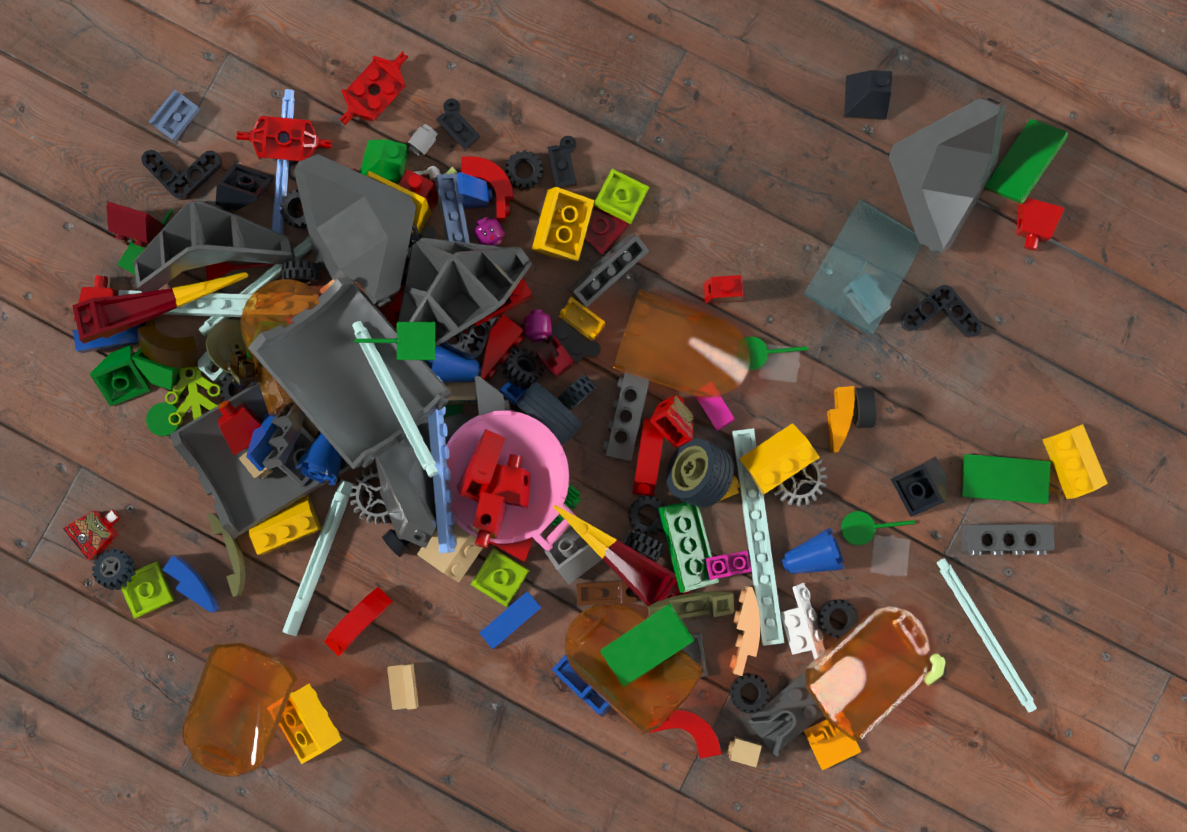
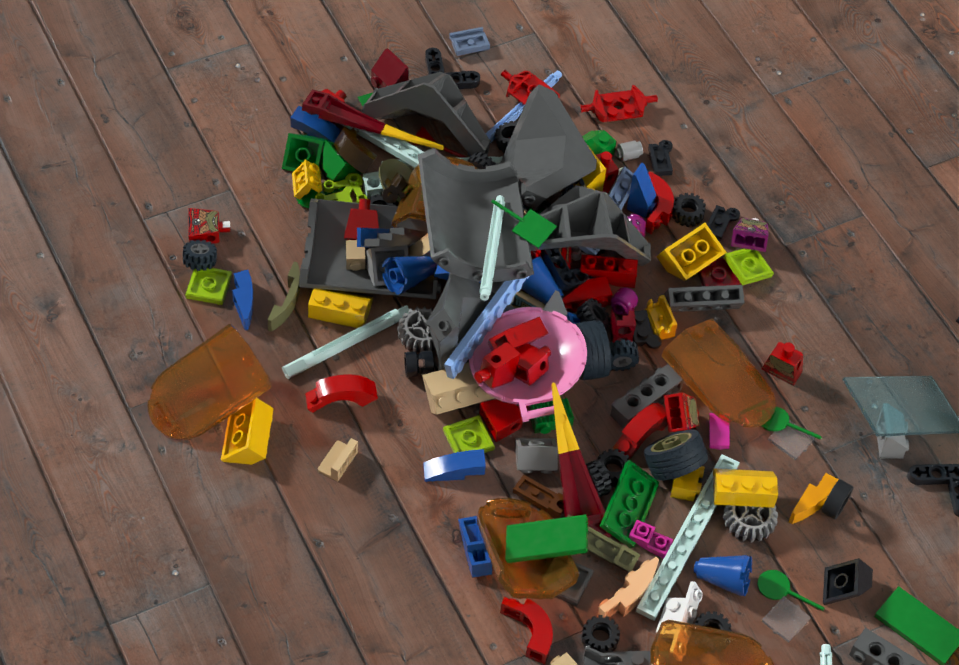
camera: 30 degrees right, 30 degrees down
(146, 408) = (305, 178): none -> yellow bracket
(241, 187) = (482, 101): black slope -> none
(603, 160) = (750, 234): none -> magenta torso

